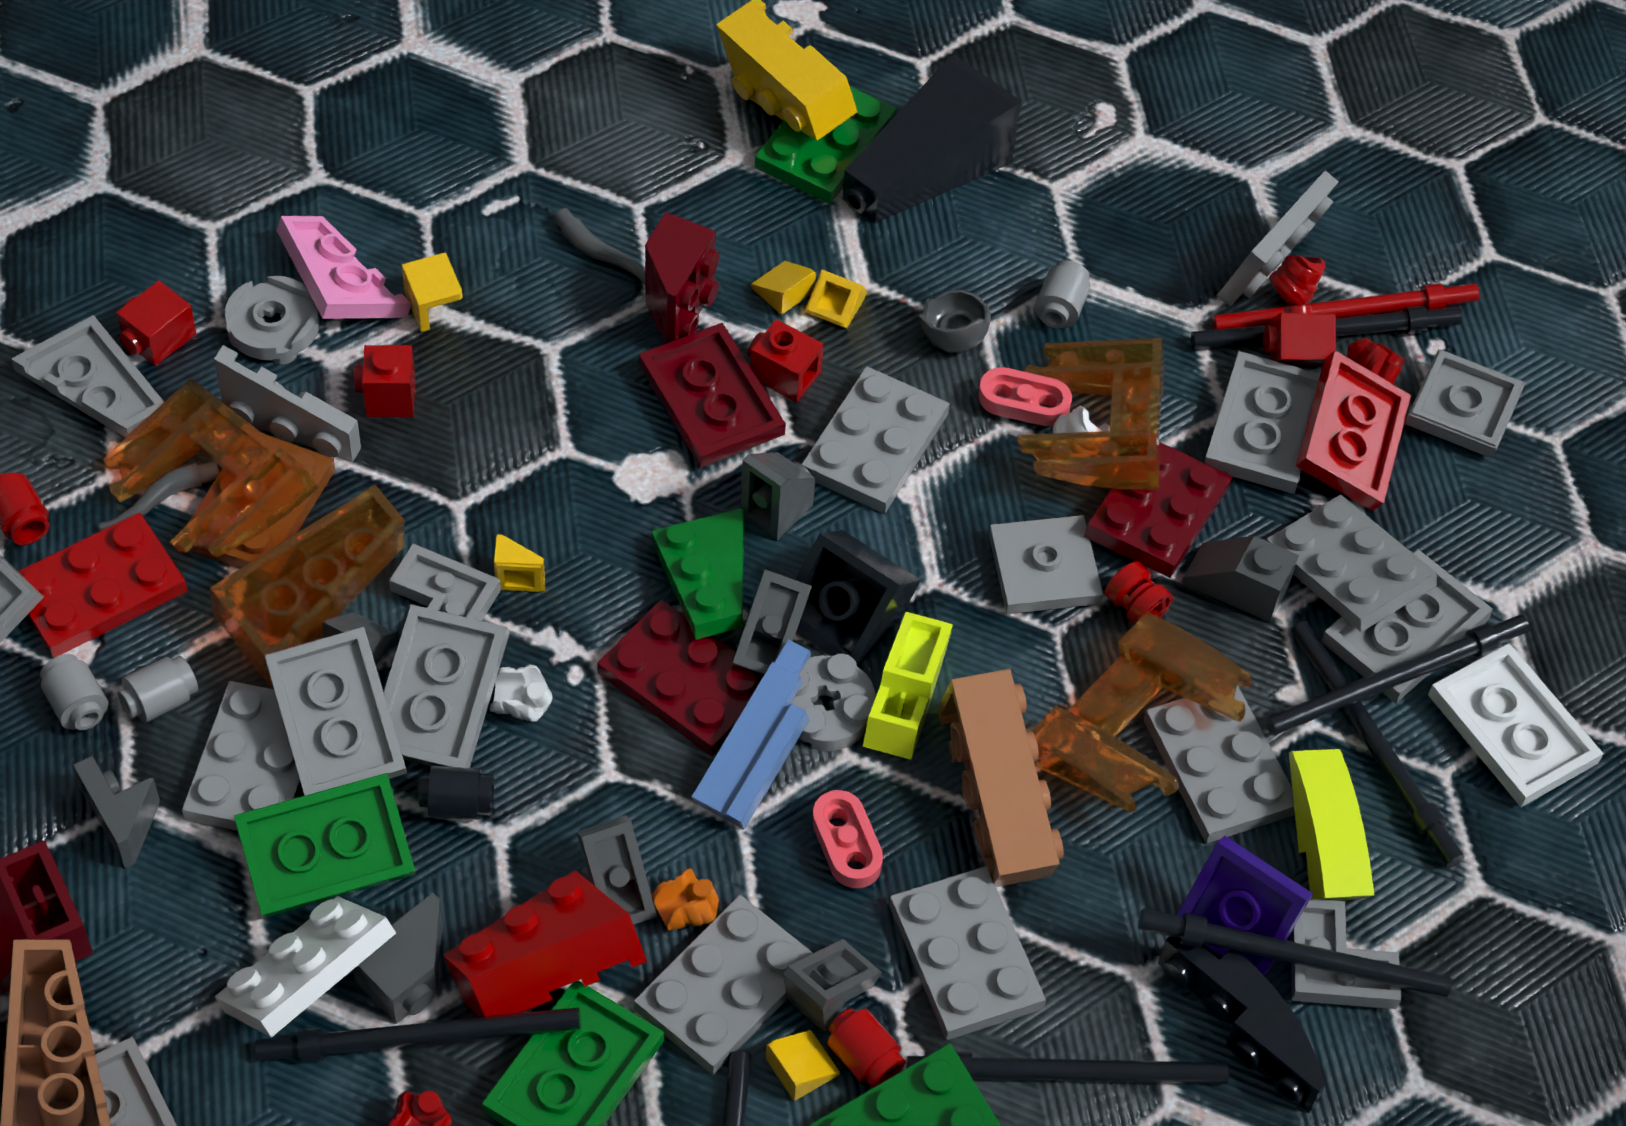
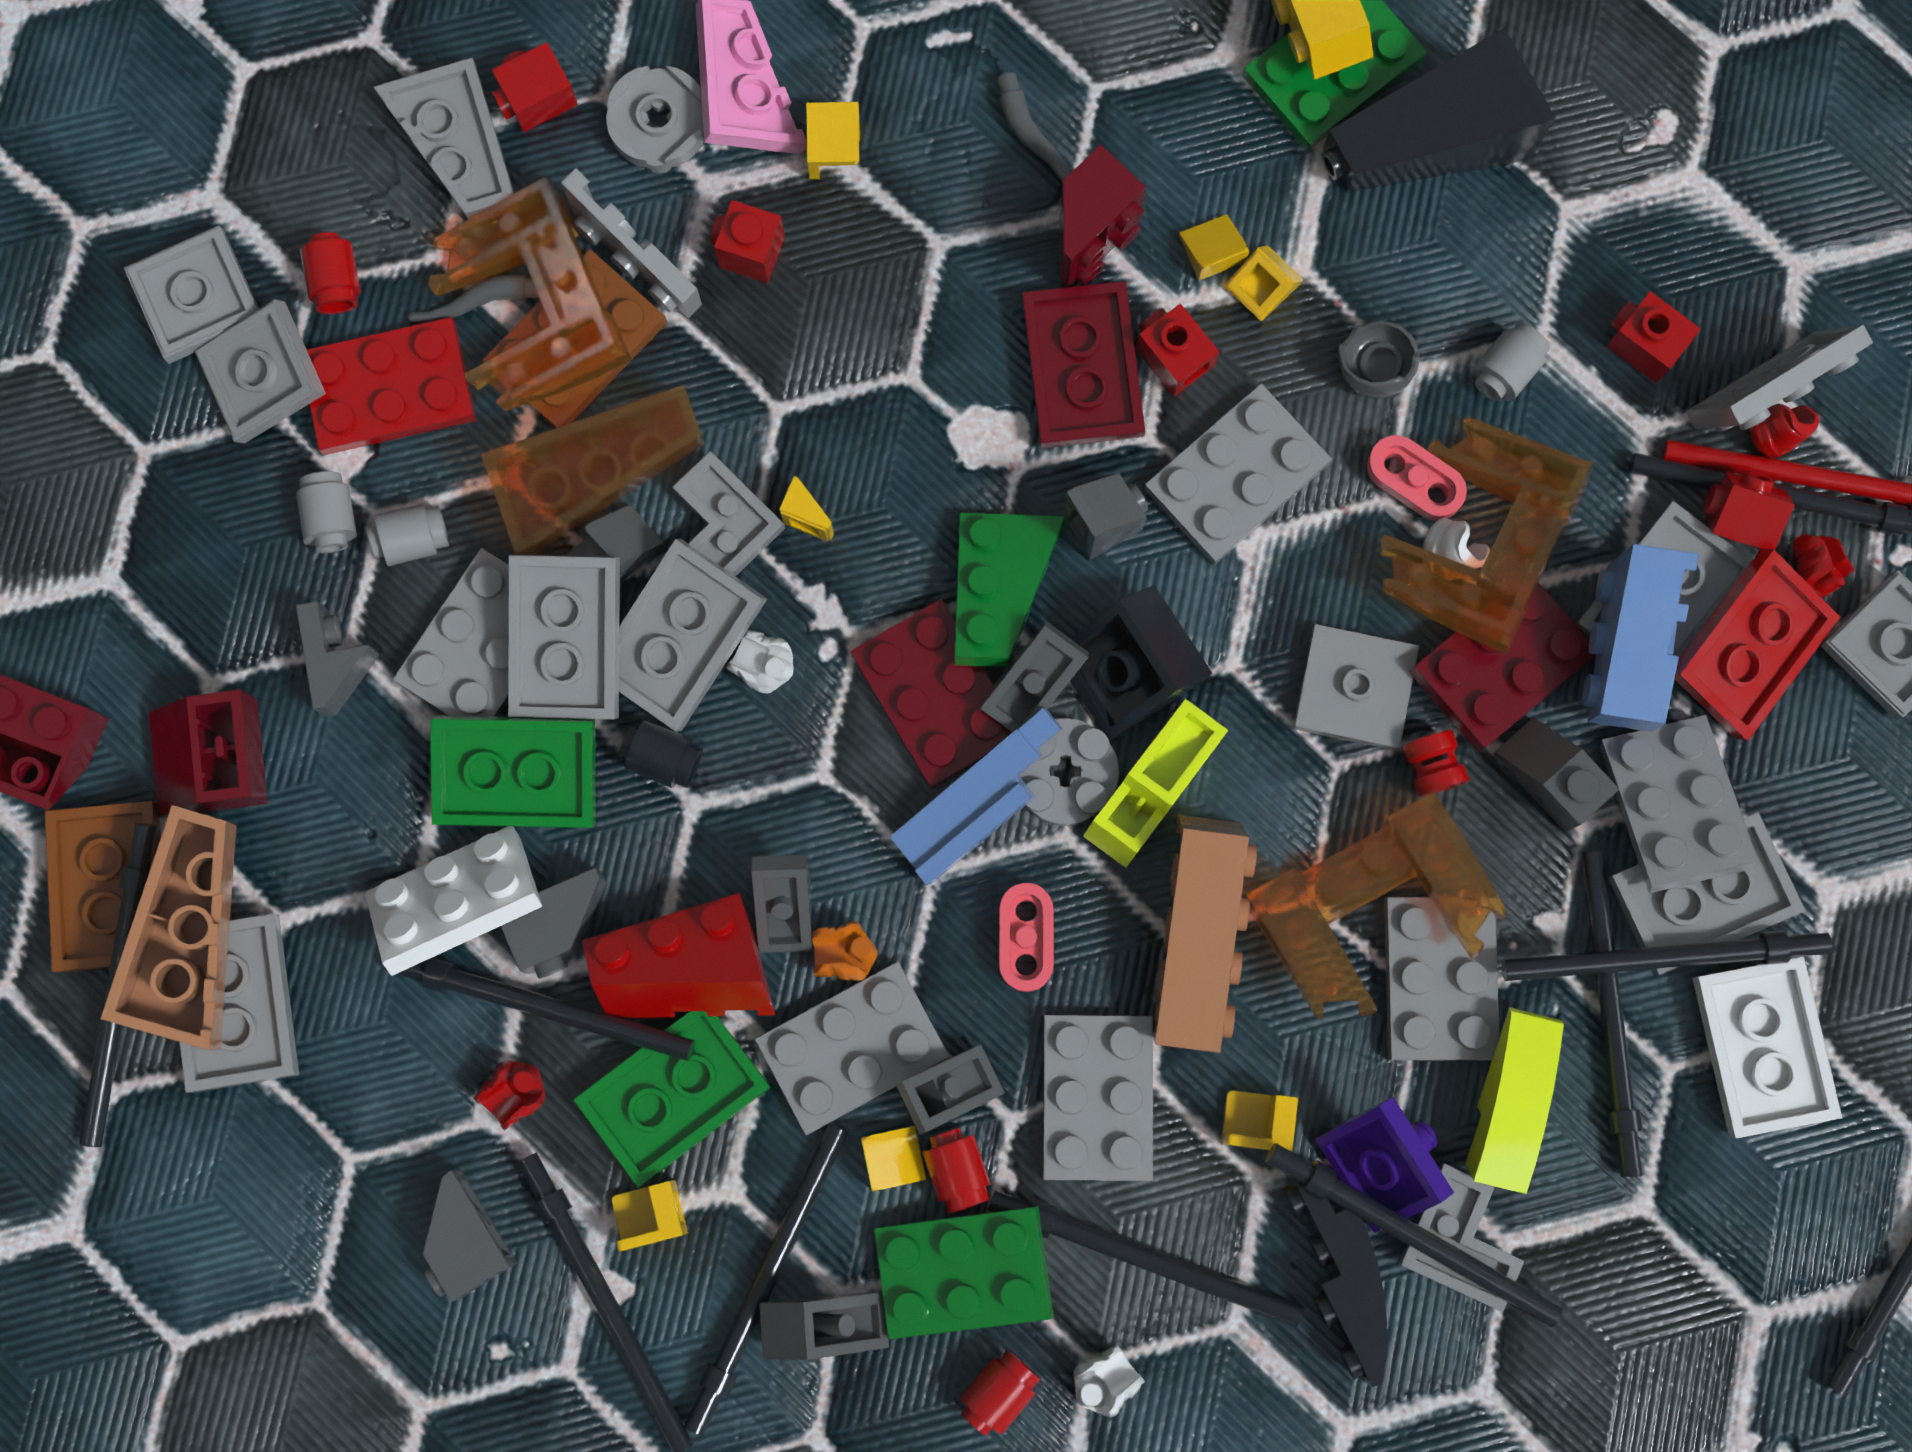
camera: 25 degrees right, 25 degrees up
(1114, 925) = (1259, 1120): none -> yellow panel
(1165, 246) = (1651, 336): none -> red brick
(1256, 440) = (1636, 637): none -> medium blue wedge

